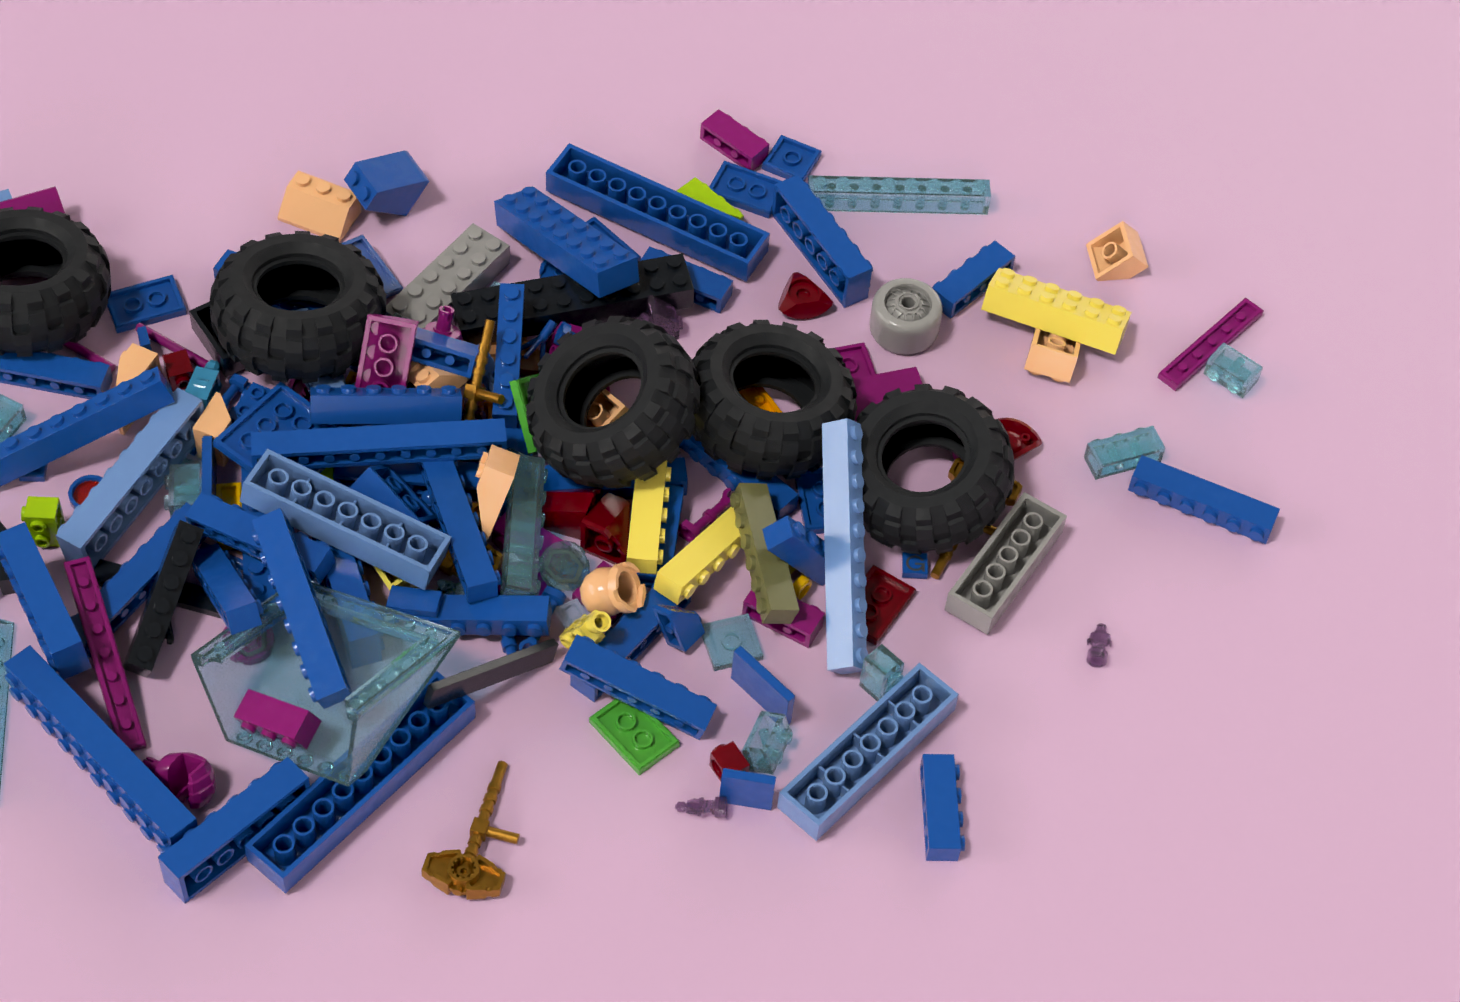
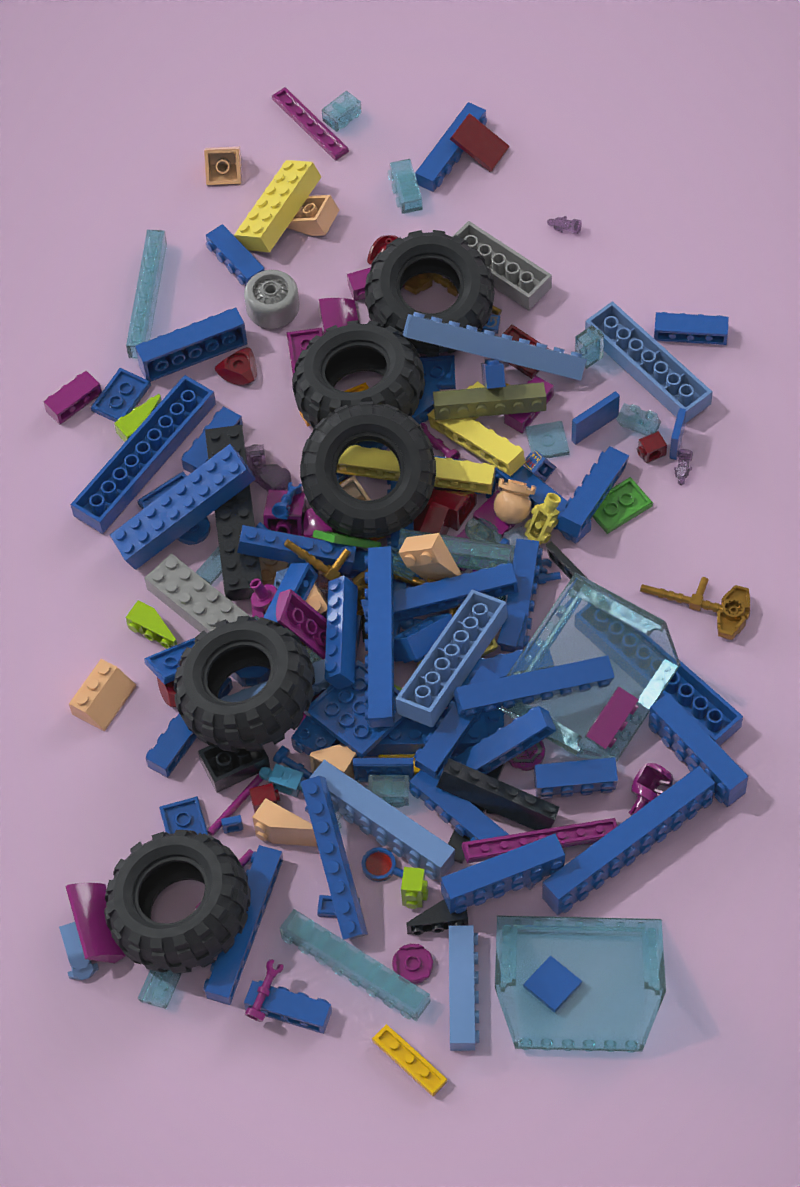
camera: 75 degrees left, 5 degrees up
(191, 705) = (575, 777): none -> blue brick
(387, 183) = (93, 635): blue slope -> none
(418, 243) = (147, 621): none -> lime slope
(791, 158) = (96, 361): blue tile -> none
(1213, 528) = (479, 142): none -> dark red tile

